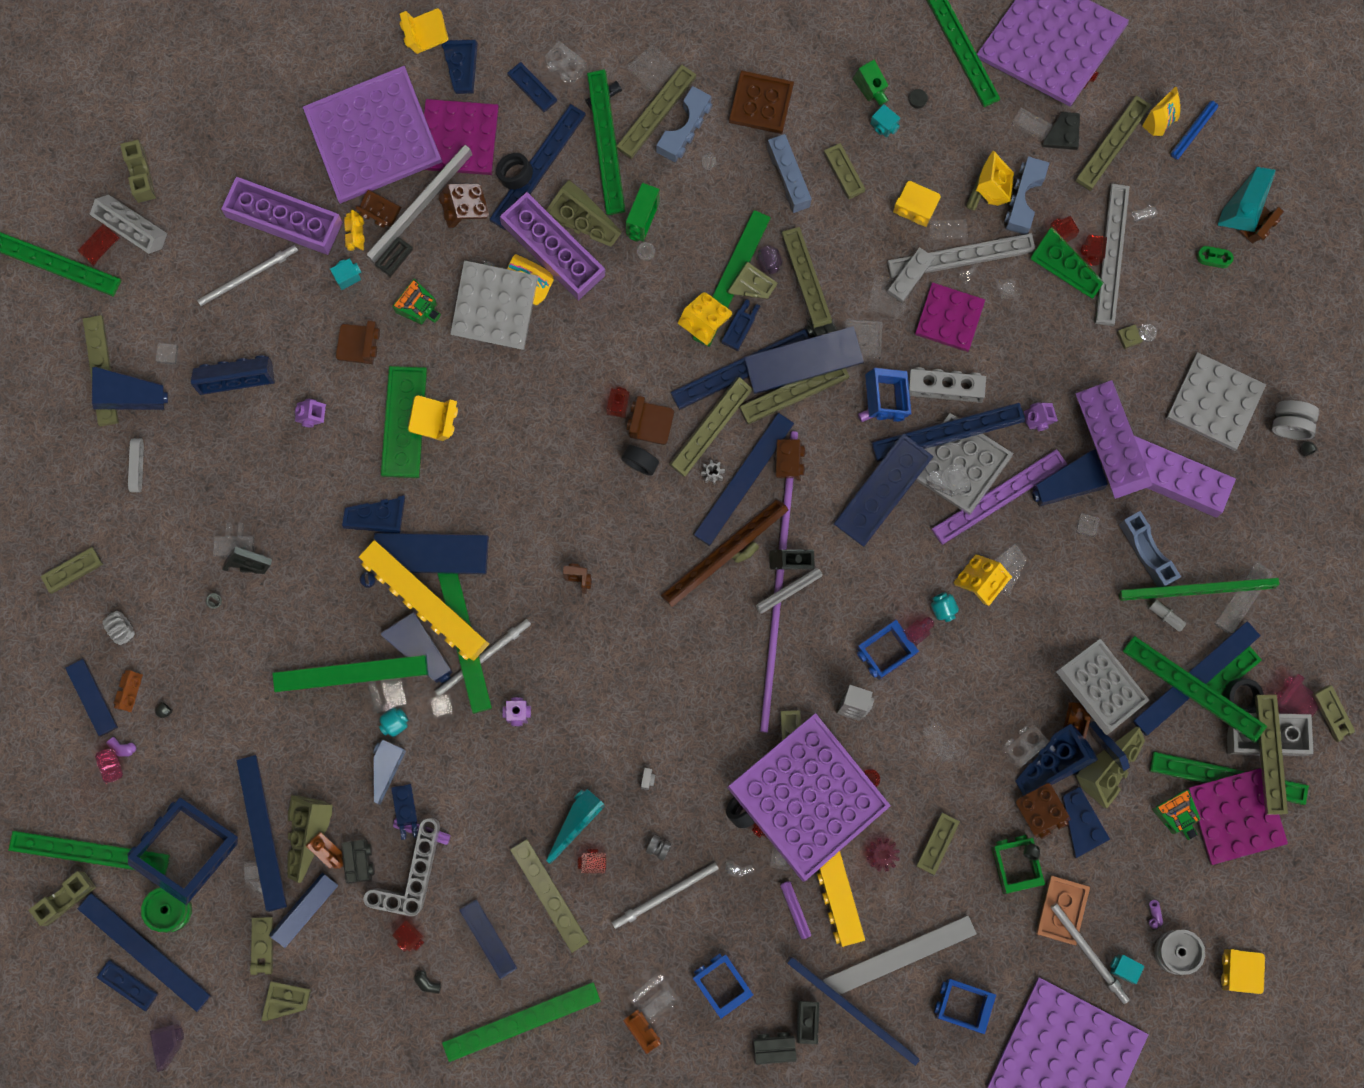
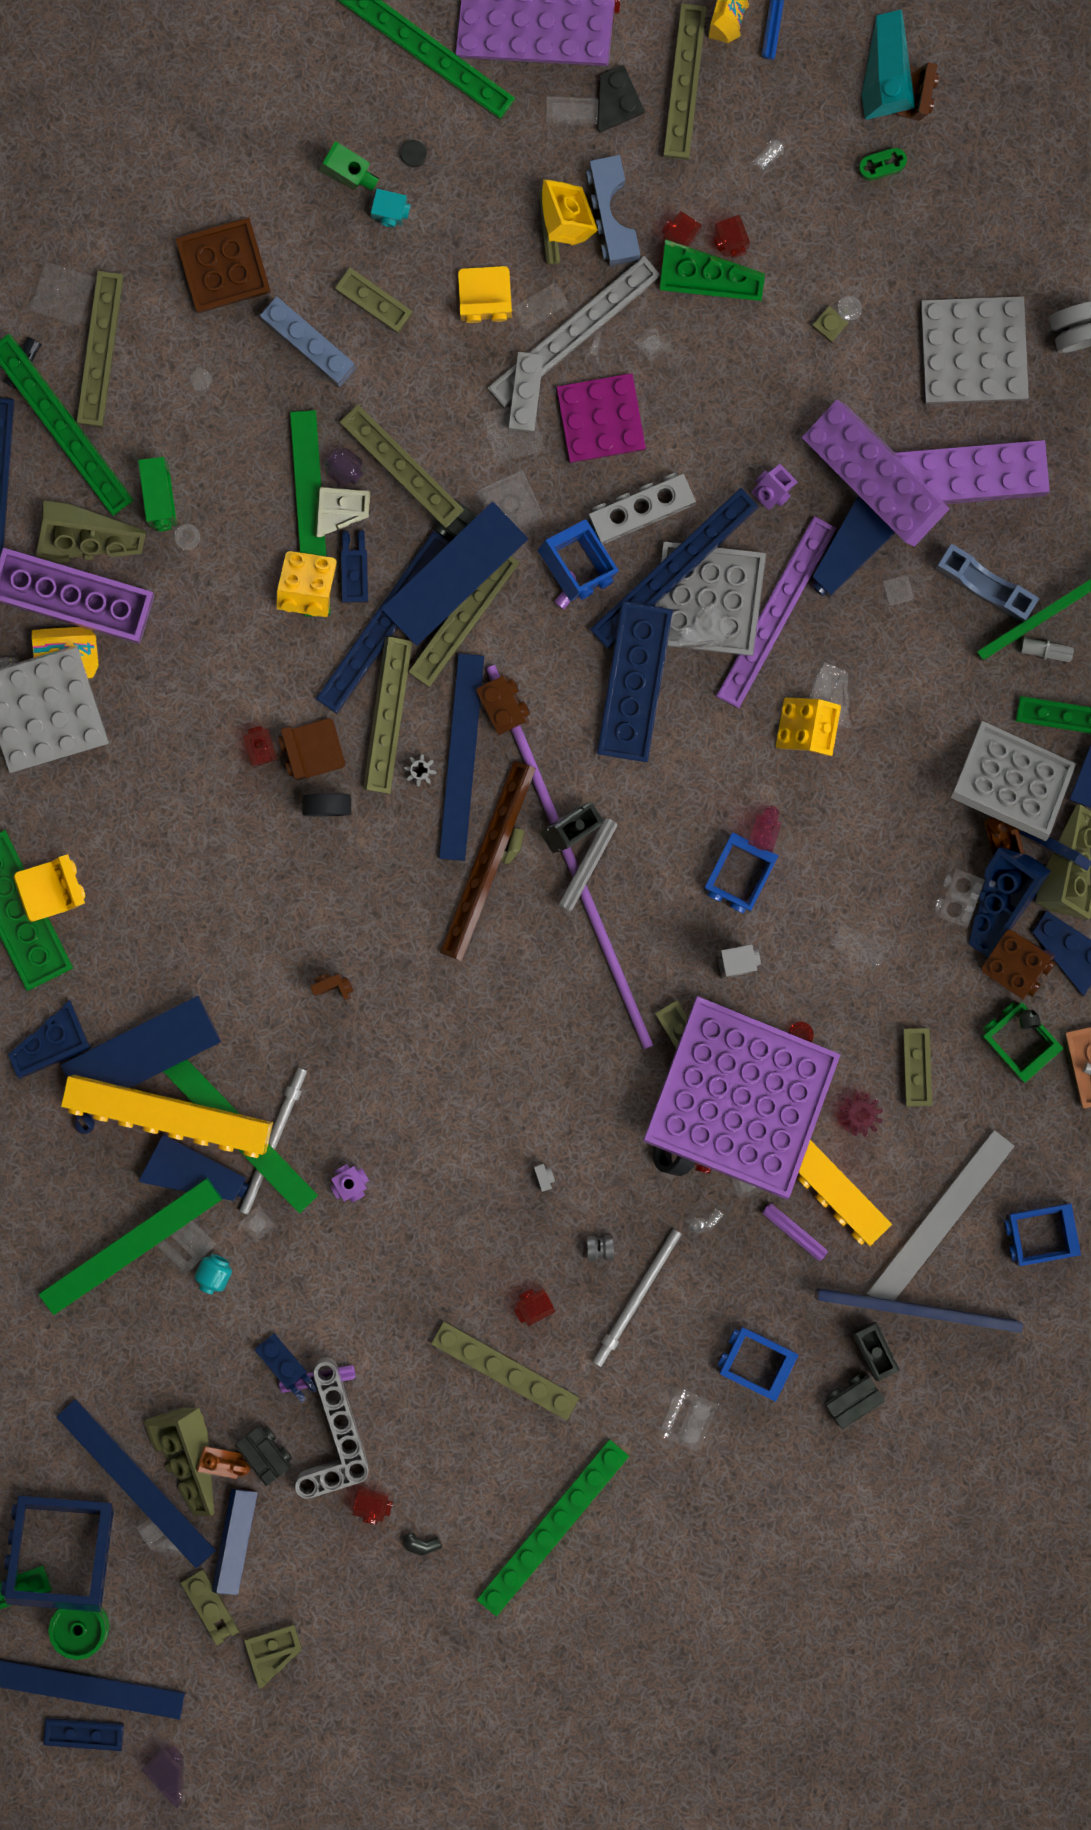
camera: 25 degrees left, 10 degrees up
(386, 763) = (232, 1326): sand blue slope -> none
(488, 939) = (463, 1457): dark blue tile -> none
(581, 814) = (490, 1259): teal wedge -> none
(638, 1026) = (696, 1465): dark orange hinge -> none
(673, 143) = (144, 380): sand blue arch -> none
(944, 607) = (780, 784): teal head -> none
(1112, 263) = (757, 228): light grey tile -> none

